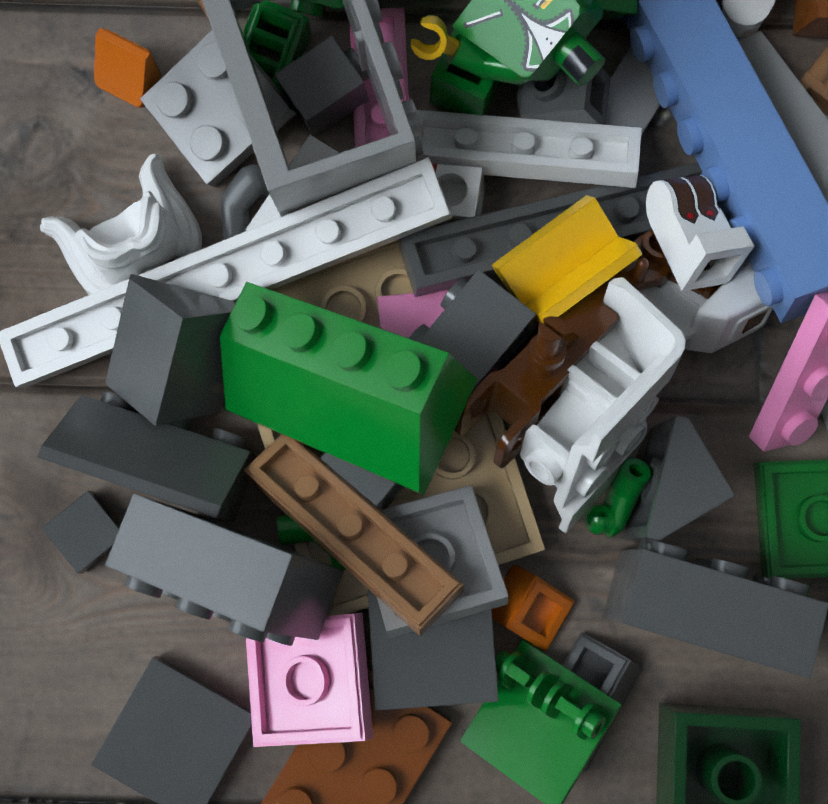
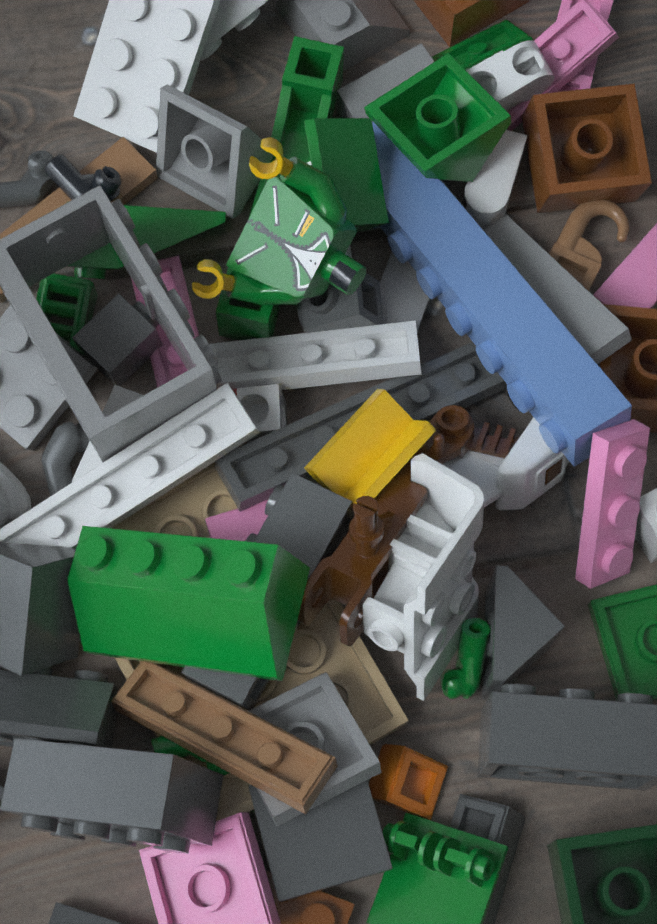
camera: 10 degrees left, 10 degrees down
(695, 232) = (477, 400): white leg -> none

